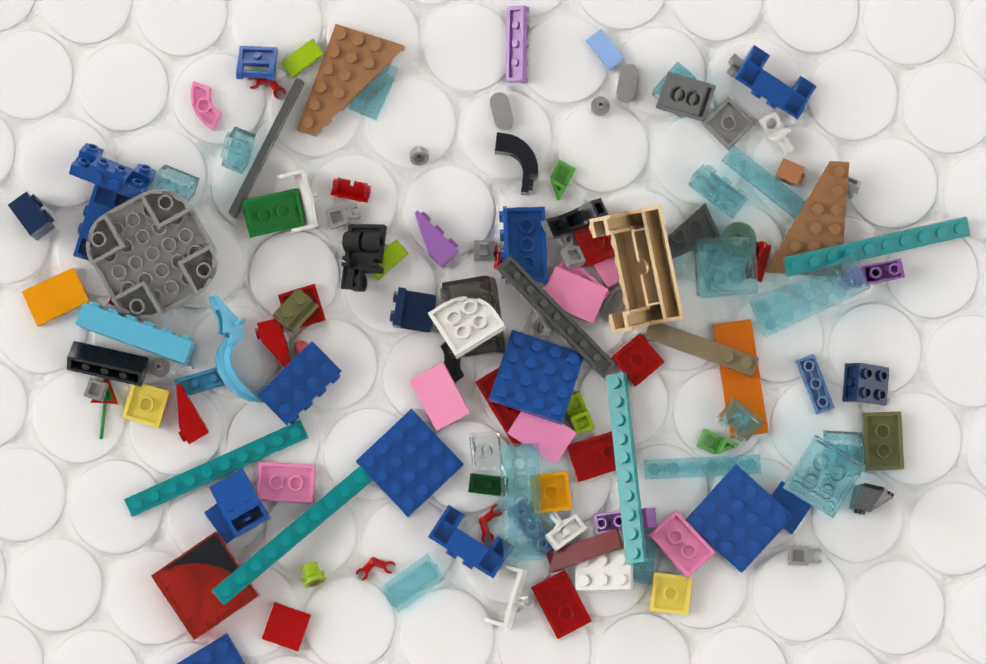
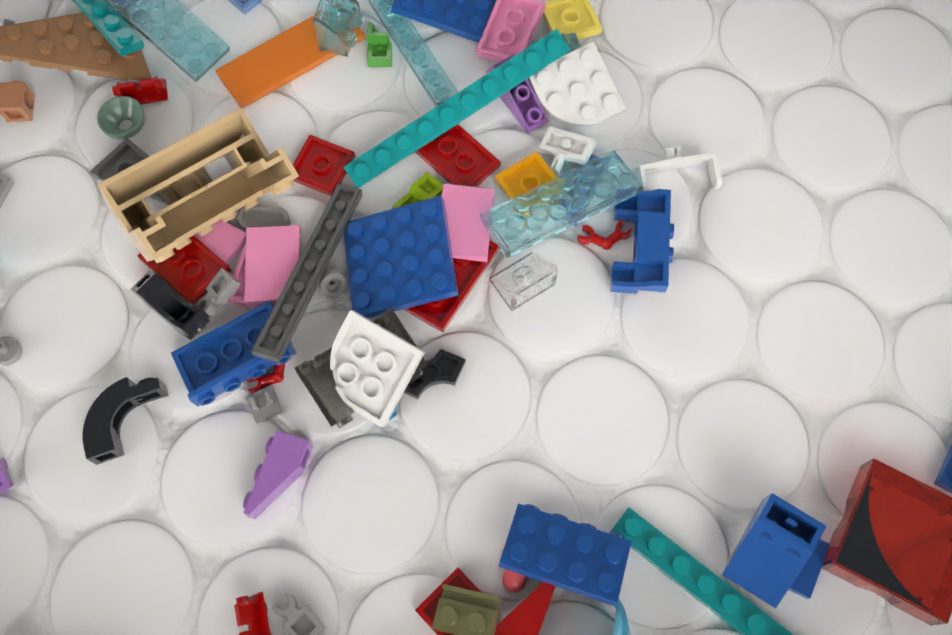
camera: 120 degrees left, 15 degrees down
(286, 482) = (702, 507): bright pink tile -> none
(286, 626) = (877, 411): red tile -> none
(292, 535) = (776, 459): teal plate -> none
(312, 575) = (798, 408): lime piece -> none
(363, 252) = (339, 558): black plate -> none
(375, 562) = (735, 346): red arm -> none
(392, 257) = (333, 523): lime slope -> none
(409, 462) = (586, 363): blue plate -> none
(412, 310) = (387, 453): dark blue bracket -> none
(413, 582) = (728, 286): clear light blue piece -> none
(419, 156) = (164, 553): light grey tile -> none
(440, 396) = (483, 364): bright pink tile -> none
(485, 484) = (561, 253): dark green plate -> none
(501, 111) = (57, 473): light grey tile -> none
(561, 177) = (124, 354): bright green slope -> none
(561, 604) = (649, 120): red tile -> none
(585, 550) = (576, 111): dark red tile -> none
(702, 348) = (272, 87): dark tan slope -> none
(718, 190) = (68, 158): clear light blue slope -> none
(725, 266) = (157, 111): clear light blue slope -> none
(763, 181) = (38, 124): clear light blue plate -> none

